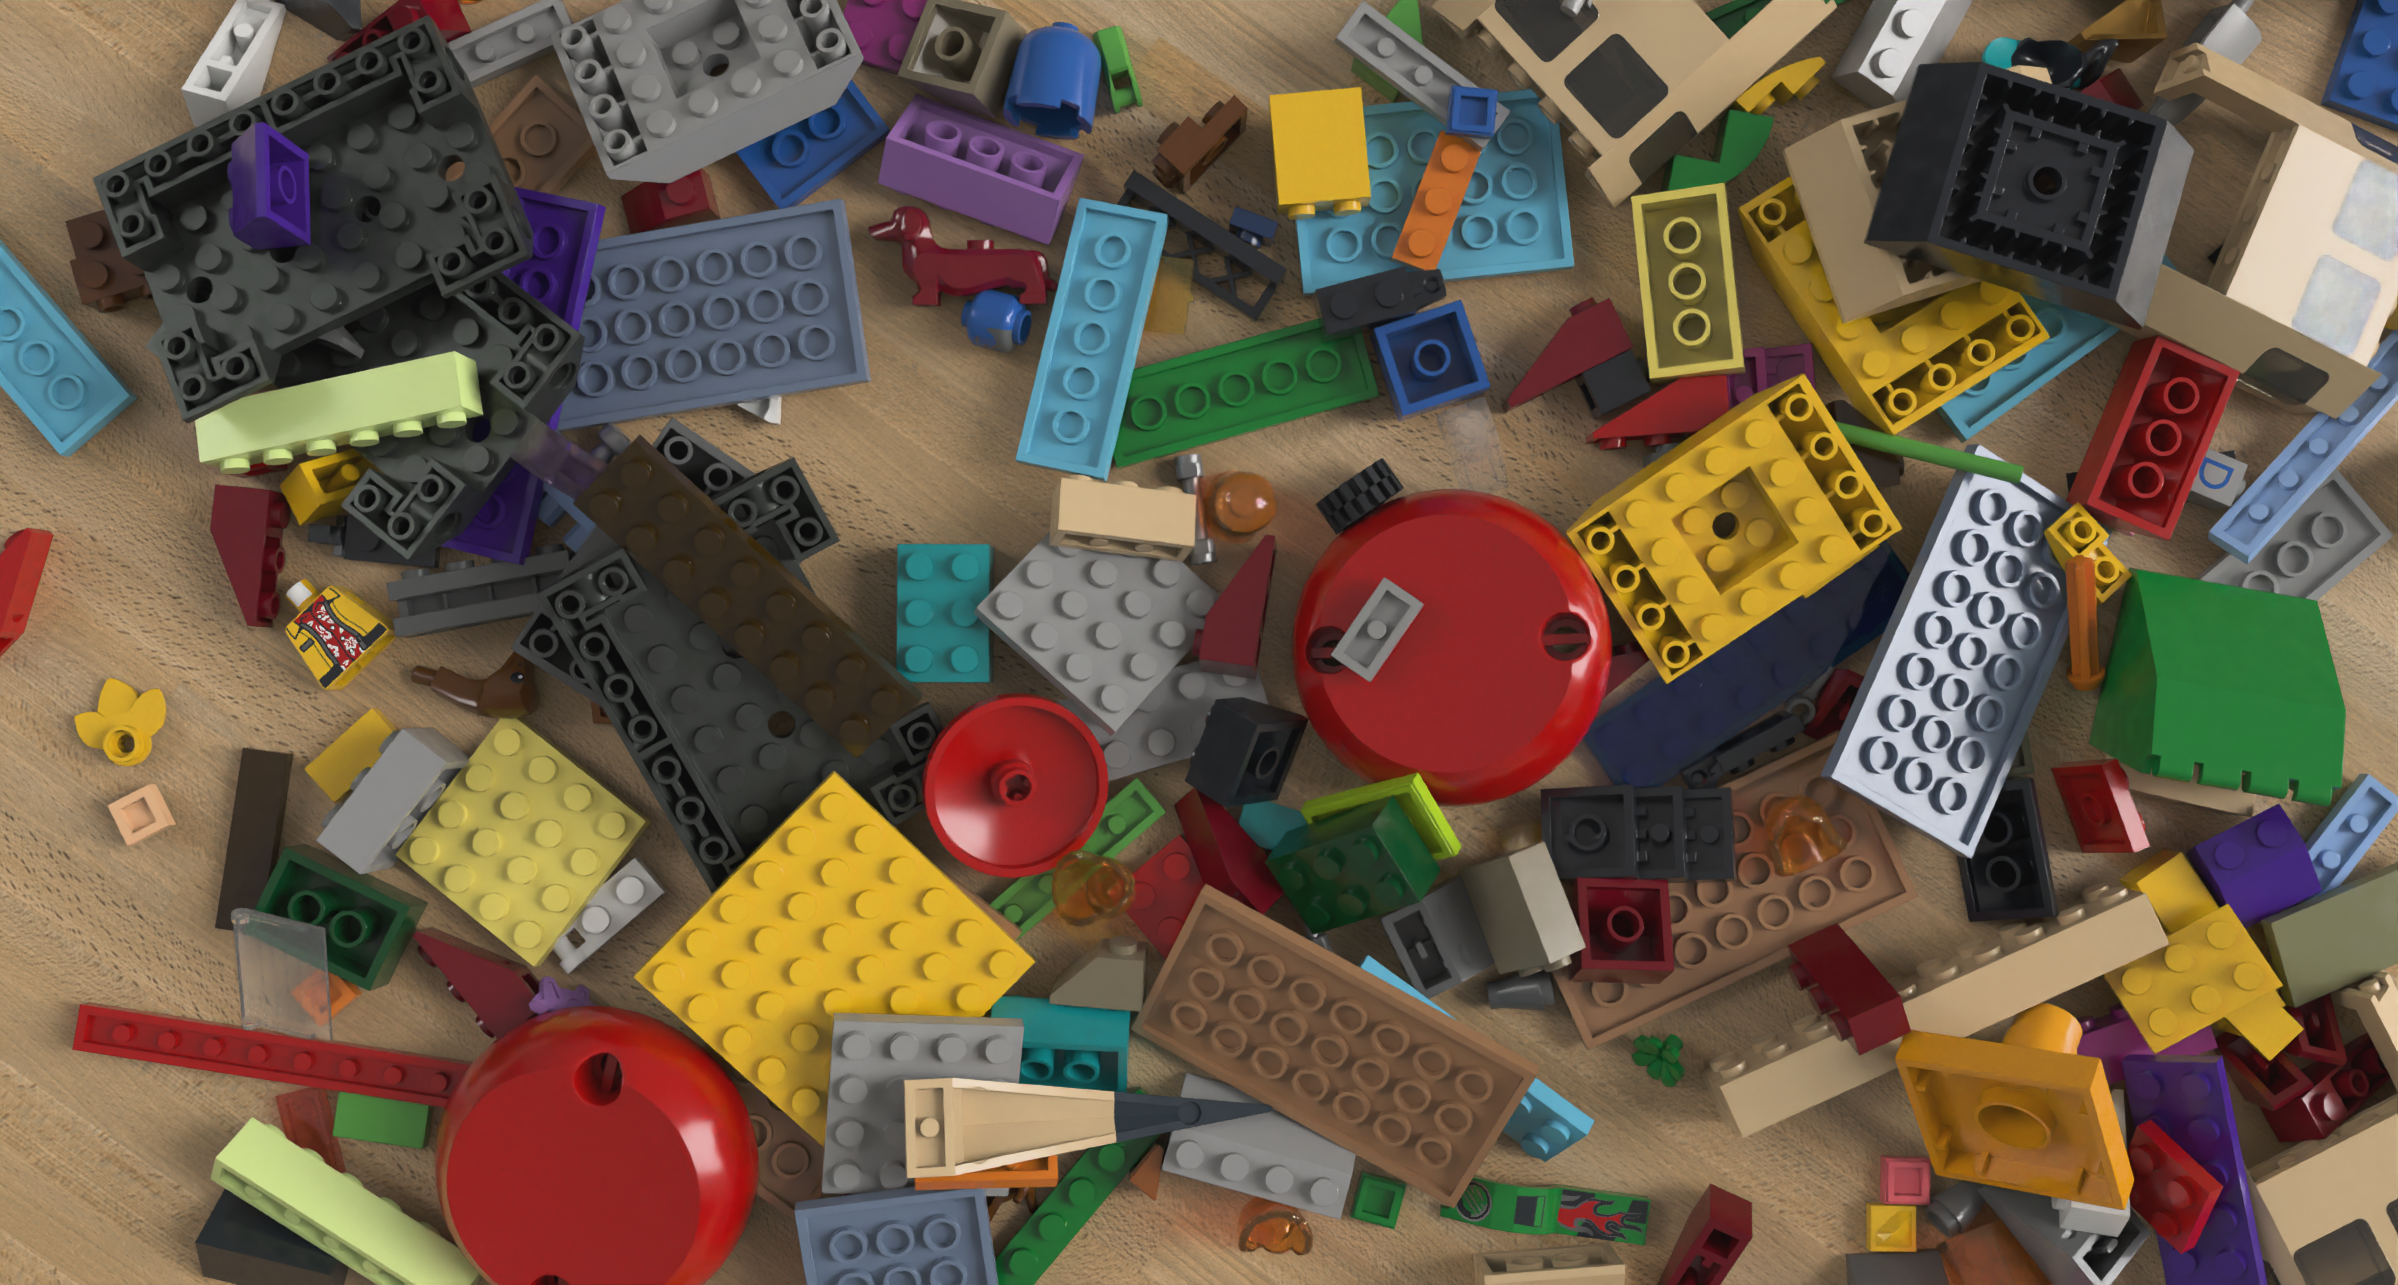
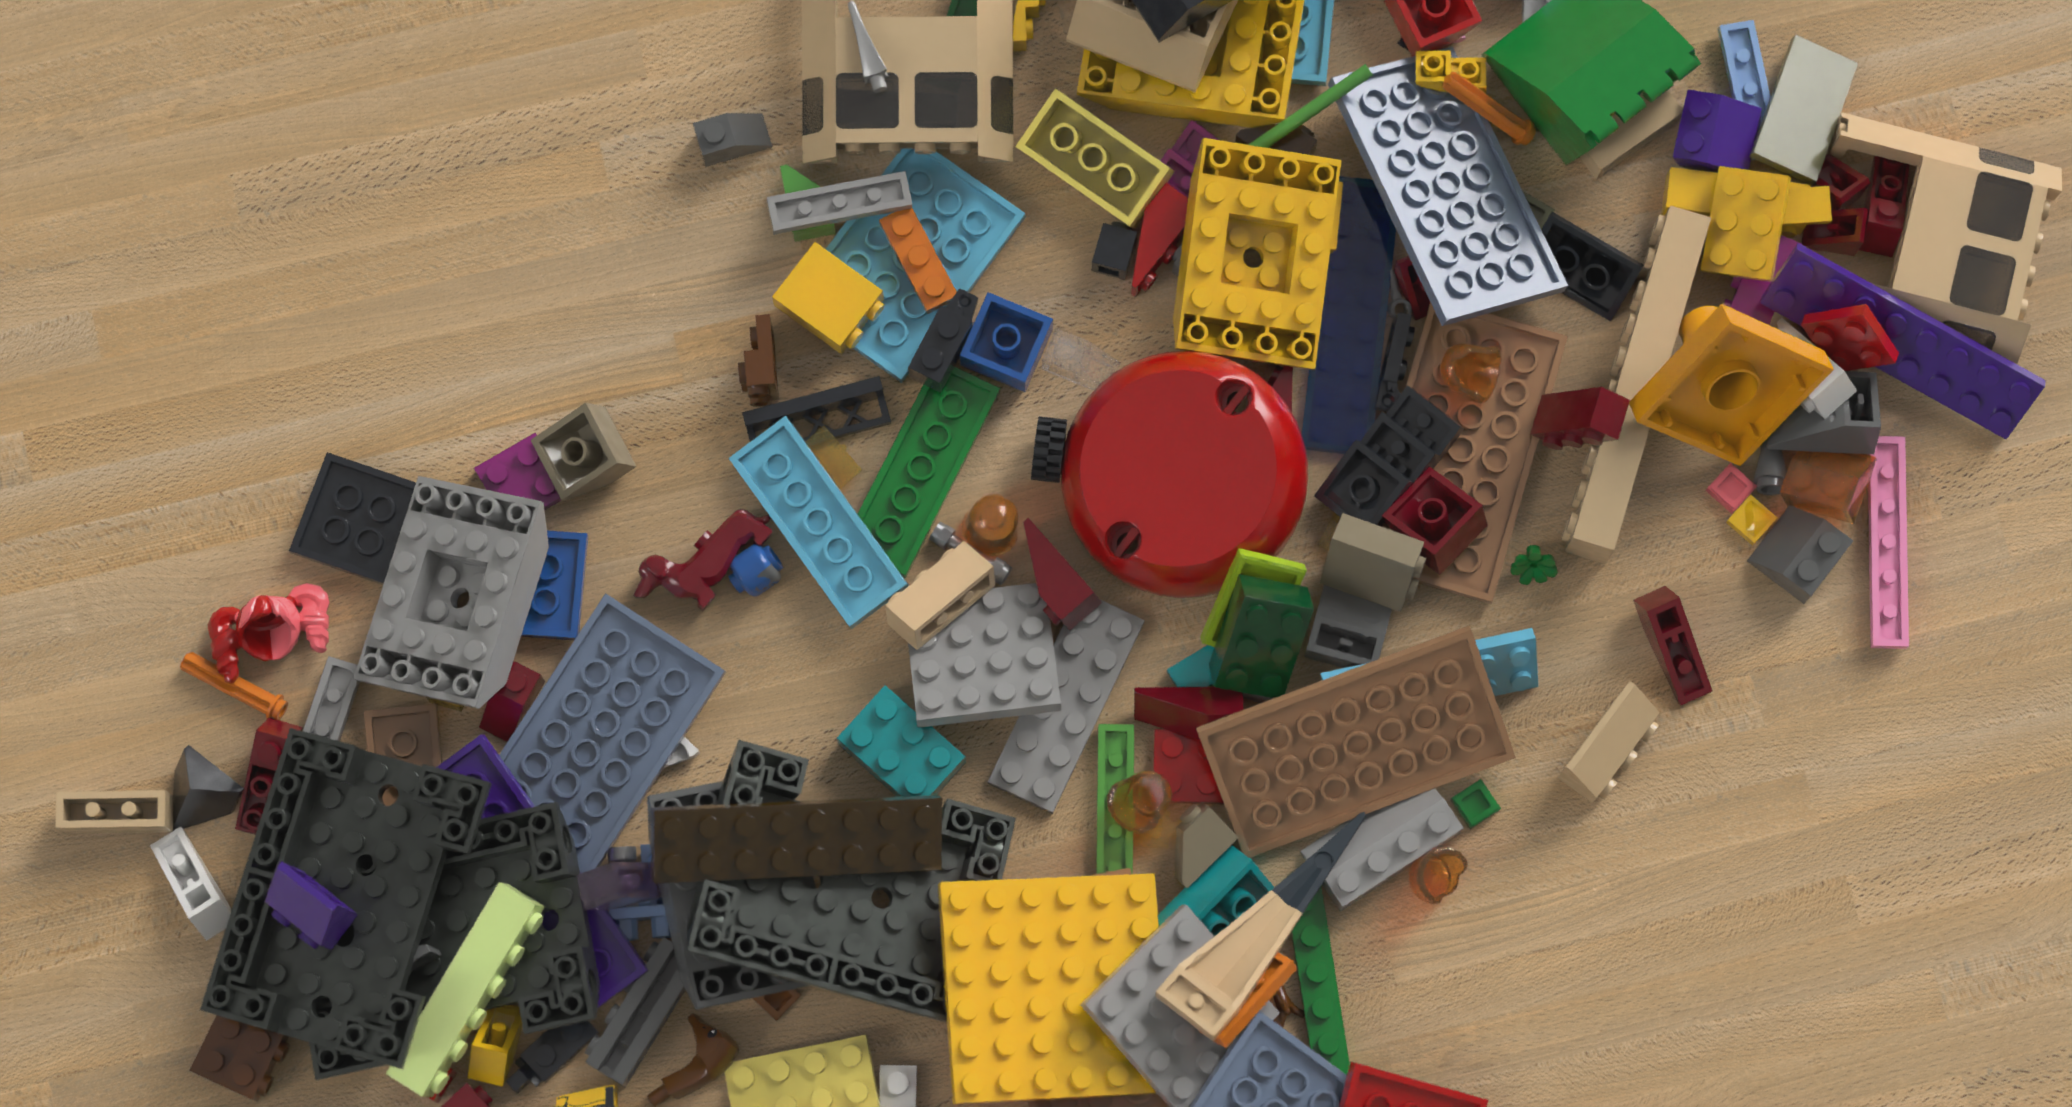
camera: 45 degrees left, 10 degrees down
(980, 169) = (658, 501): medium lavender slope -> none
(1015, 785) = (1040, 791): red dish -> none
(1054, 82) = (649, 413): blue cylinder -> none
(1117, 65) = (668, 370): bright green bar -> none
(1147, 1170) = (1337, 919): dark orange slope -> none
(1245, 751) = (1139, 644): black slope -> none
(1252, 228) = (836, 375): dark blue plate -> none
(1377, 629) = (1135, 499): light grey plate -> none
(1471, 112) = (886, 192): blue tile -> none
(1522, 993) = (1424, 610): dark grey cone -> none
(1553, 1210) = (1569, 706): piece -> none
(1581, 343) = (1073, 250): dark red slope -> none
(1736, 146) = (1039, 62): green brick -> none
(2101, 806) = (1603, 189): red plate -> none

